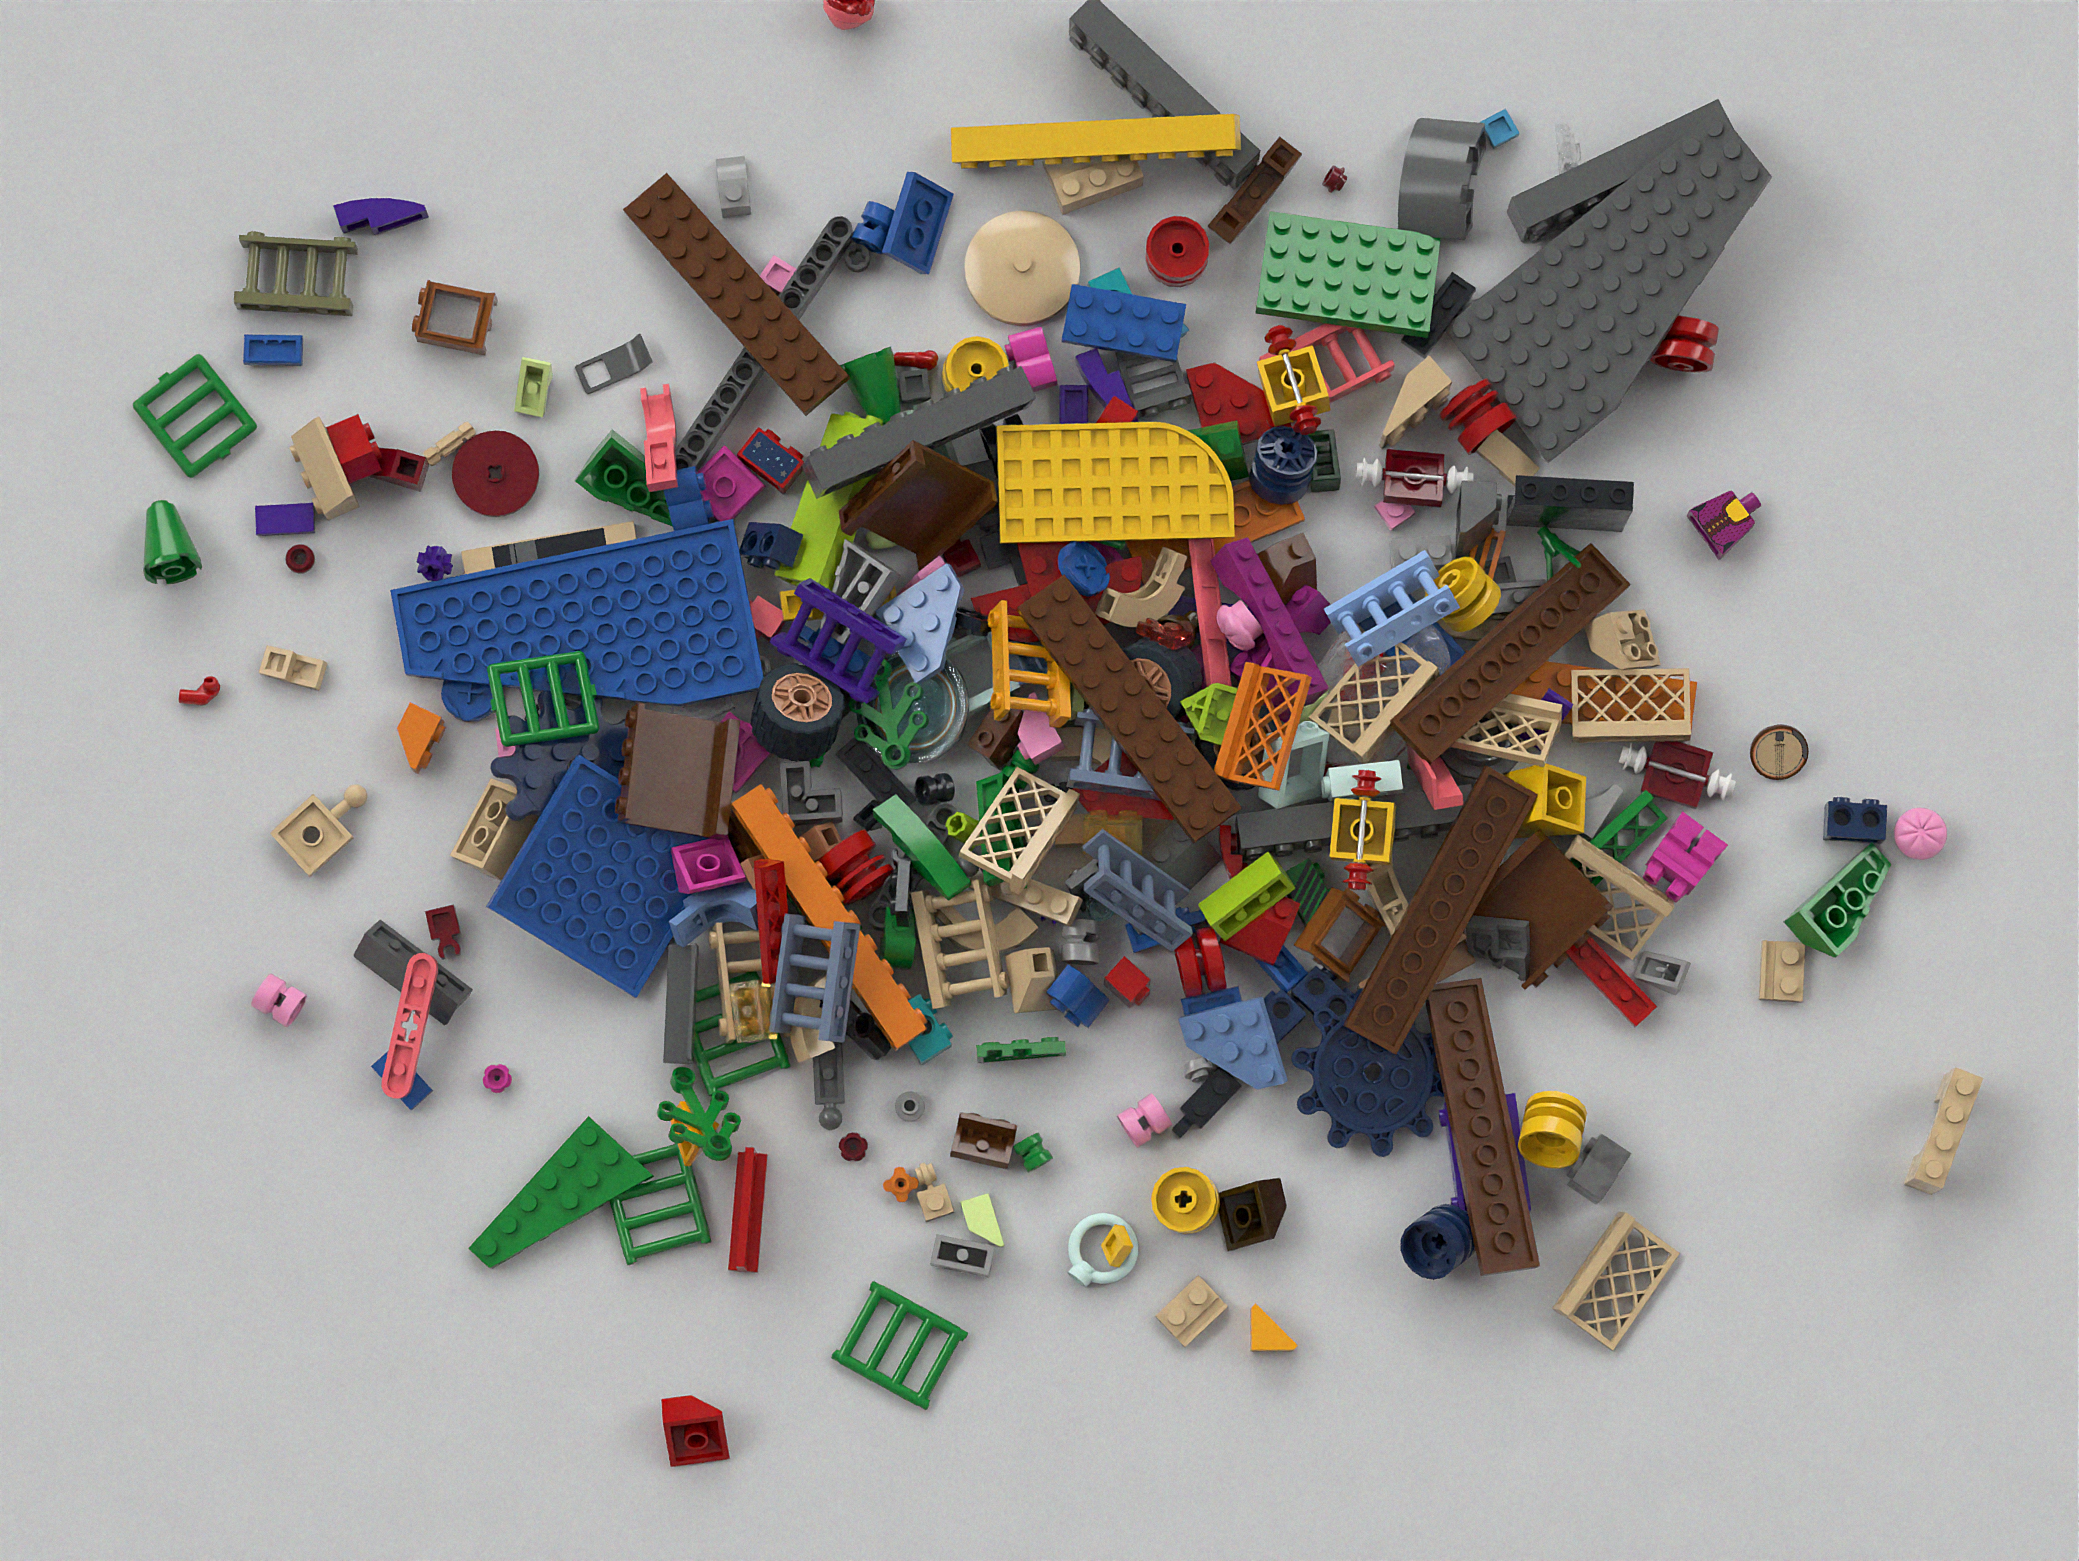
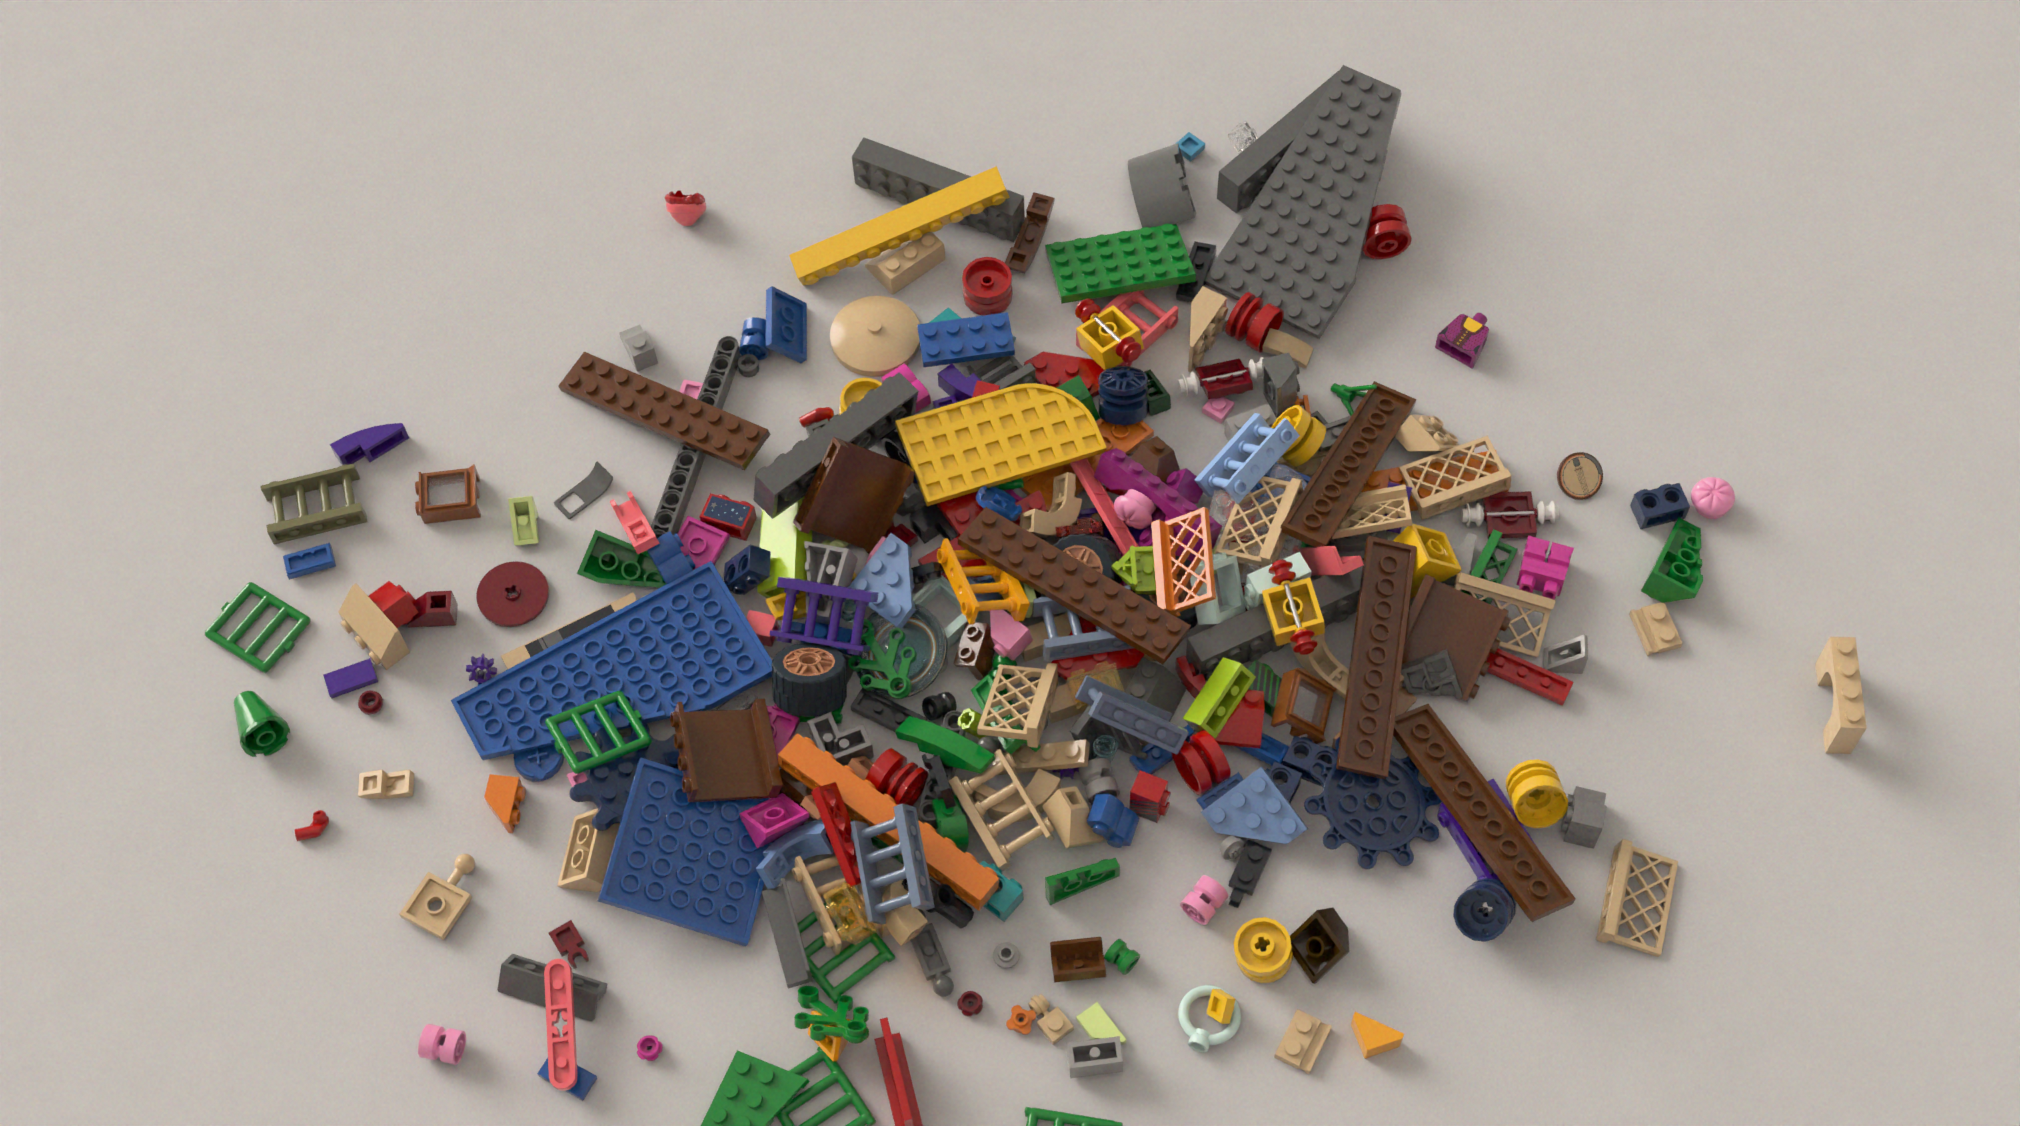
camera: 15 degrees left, 20 degrees down
(449, 443) = (470, 583): tan axle -> none
(866, 819) = (896, 744): black slope -> none
(875, 383) = (785, 430): green cone -> none
(1335, 179) = (1084, 211): dark red plate -> none
(1570, 503) = (1350, 350): black panel -> none

